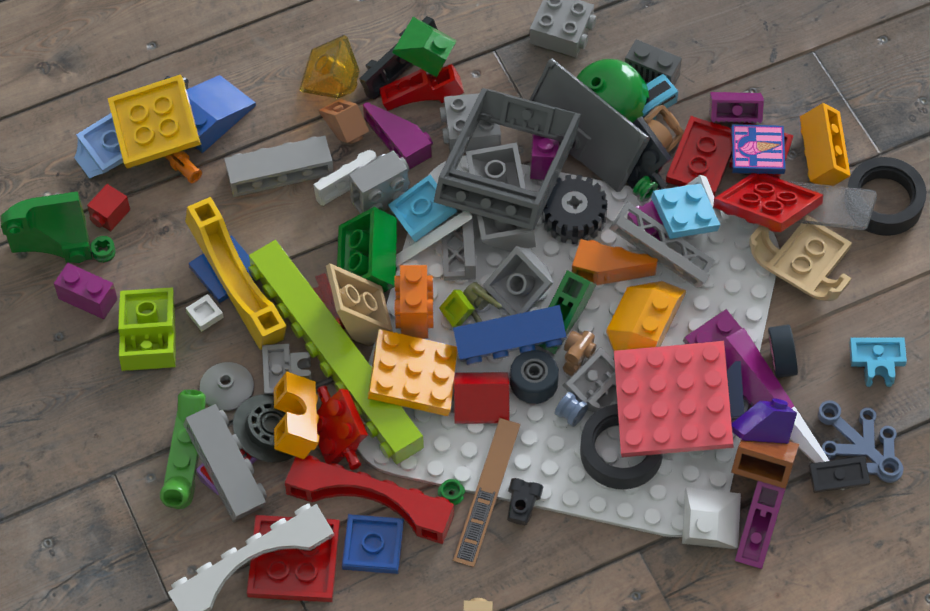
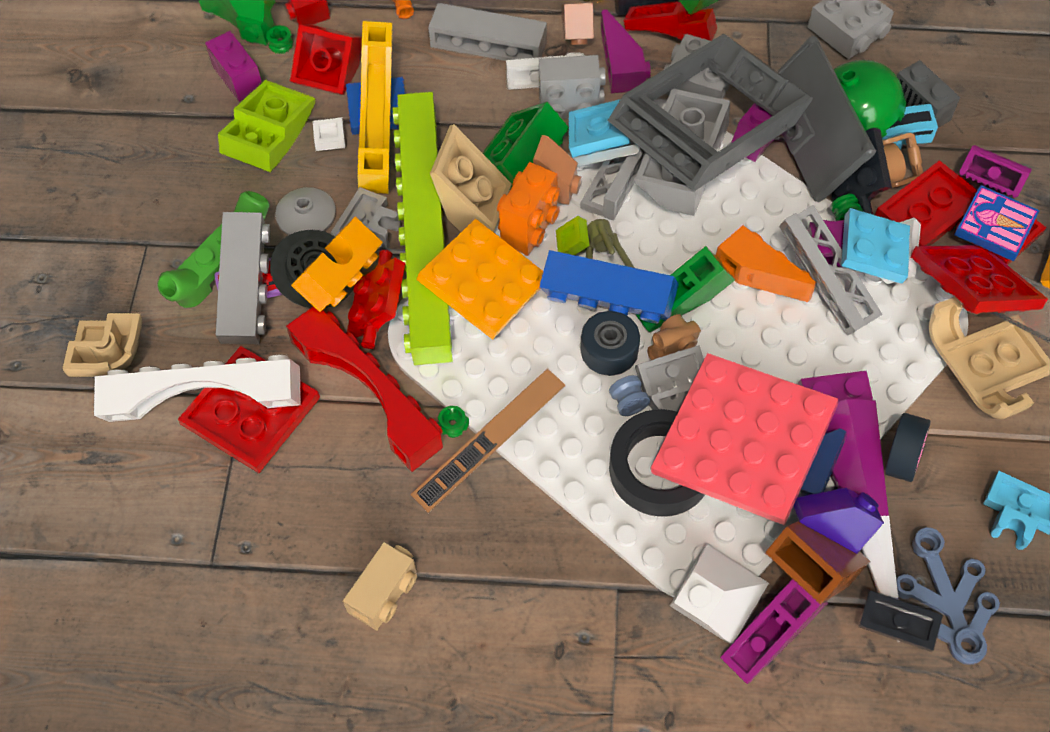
camera: 30 degrees right, 0 degrees up
(151, 567) = (103, 345): none -> tan brick
(158, 249) = (325, 58): none -> red slope
(373, 544) = (339, 435): blue tile -> none
(415, 254) = (555, 159): none -> nougat slope
(481, 397) = (541, 338): red slope -> none
(519, 281) = (653, 236): light grey slope -> none
(524, 495) = (523, 461): black plate -> none
(571, 221) = (758, 210): black wheel -> none
(644, 315) = (771, 336): light orange wedge -> none

